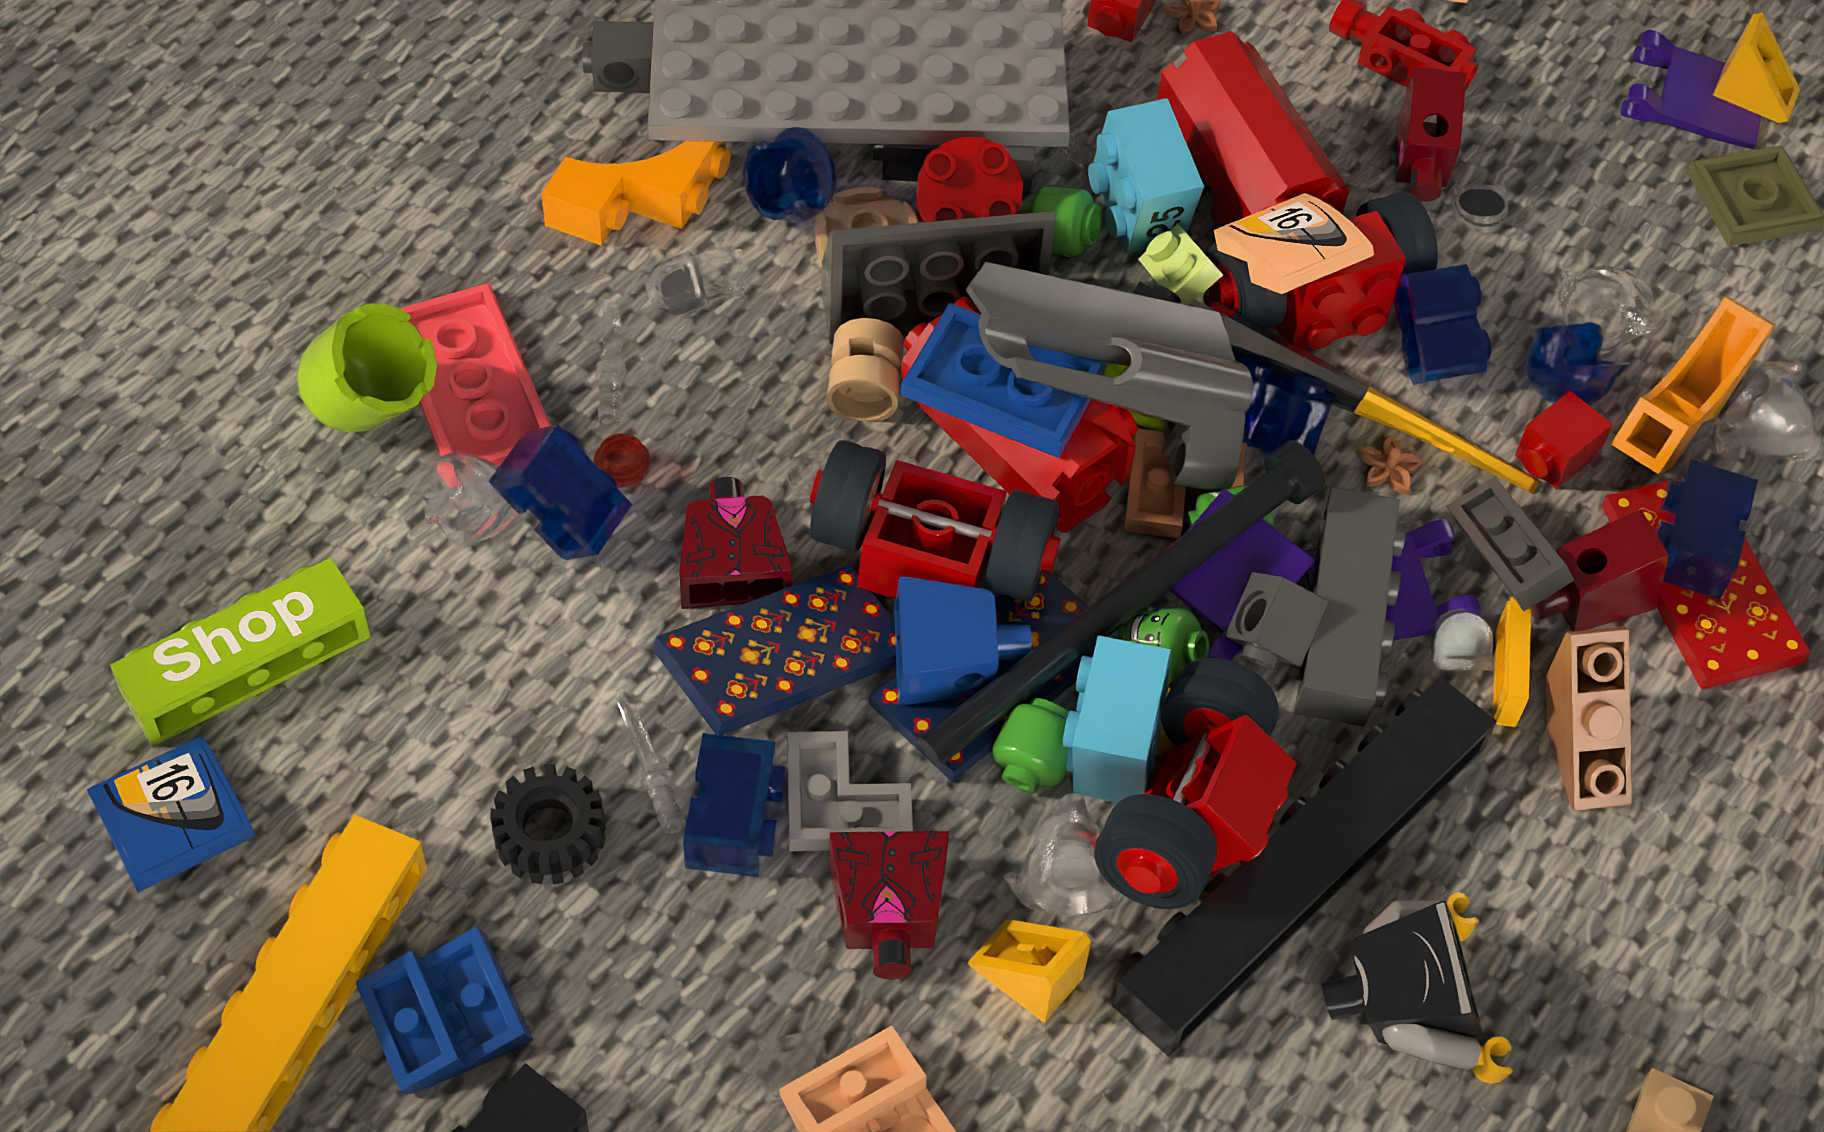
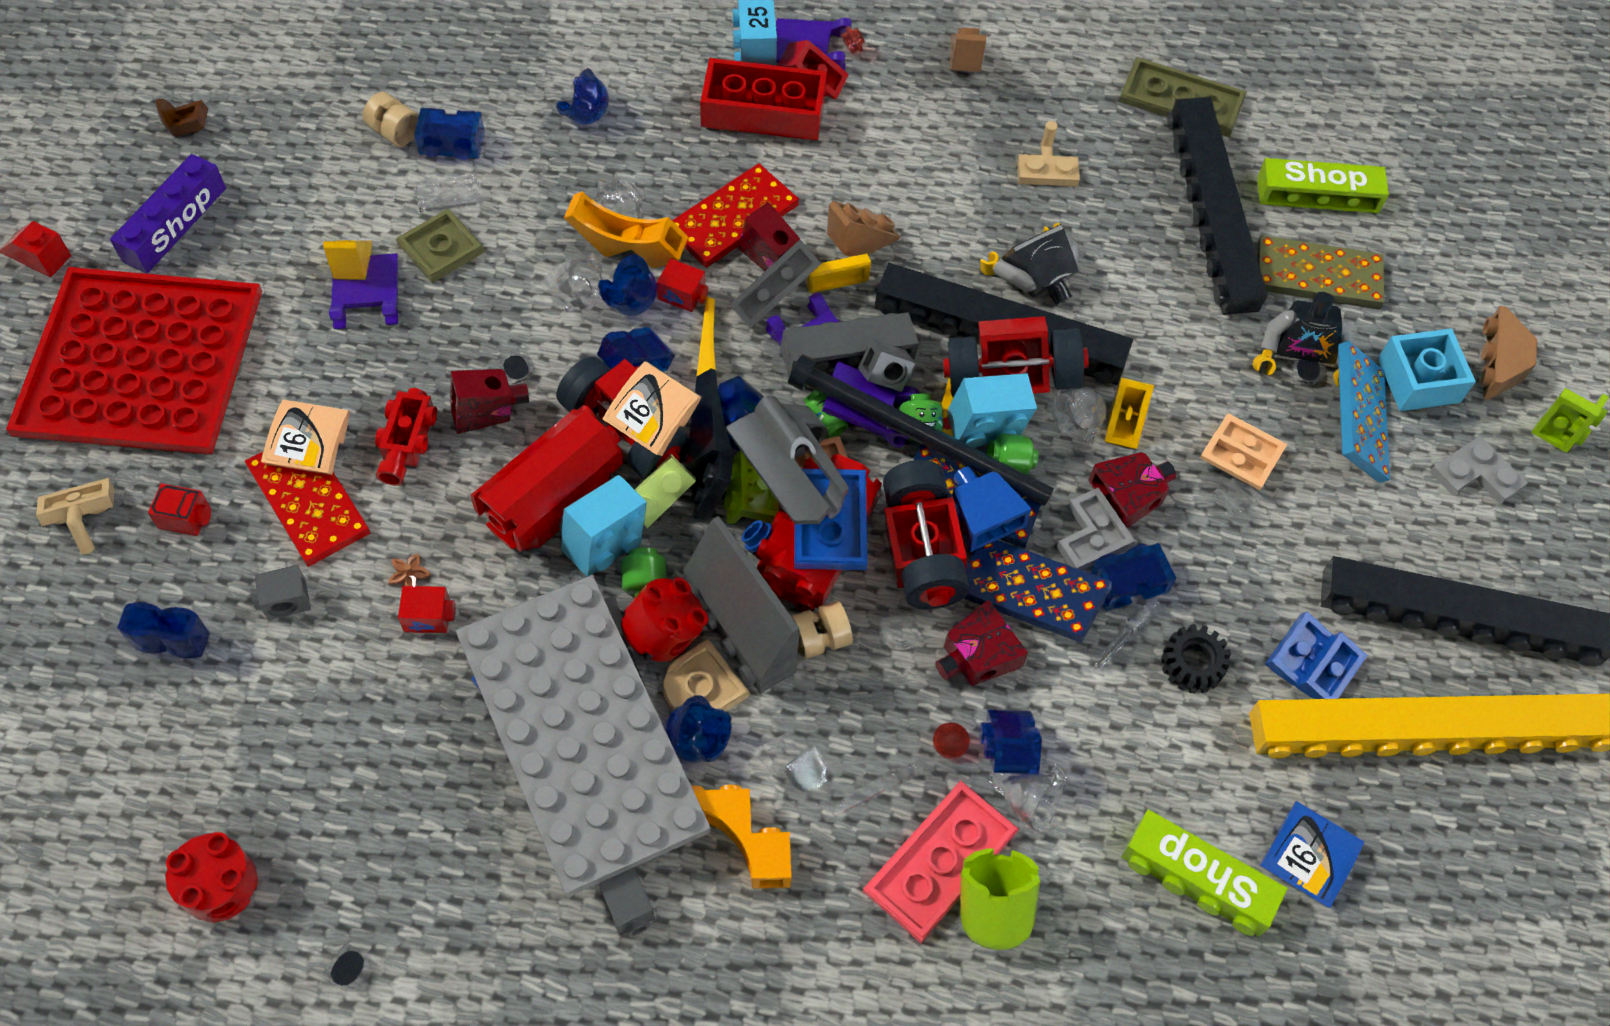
camera: 115 degrees left, 5 degrees up
(1389, 465) = (734, 363): nougat plant -> none
(1461, 642) = (838, 299): clear tile -> none
(1704, 527) = (716, 208): clear blue brick -> none

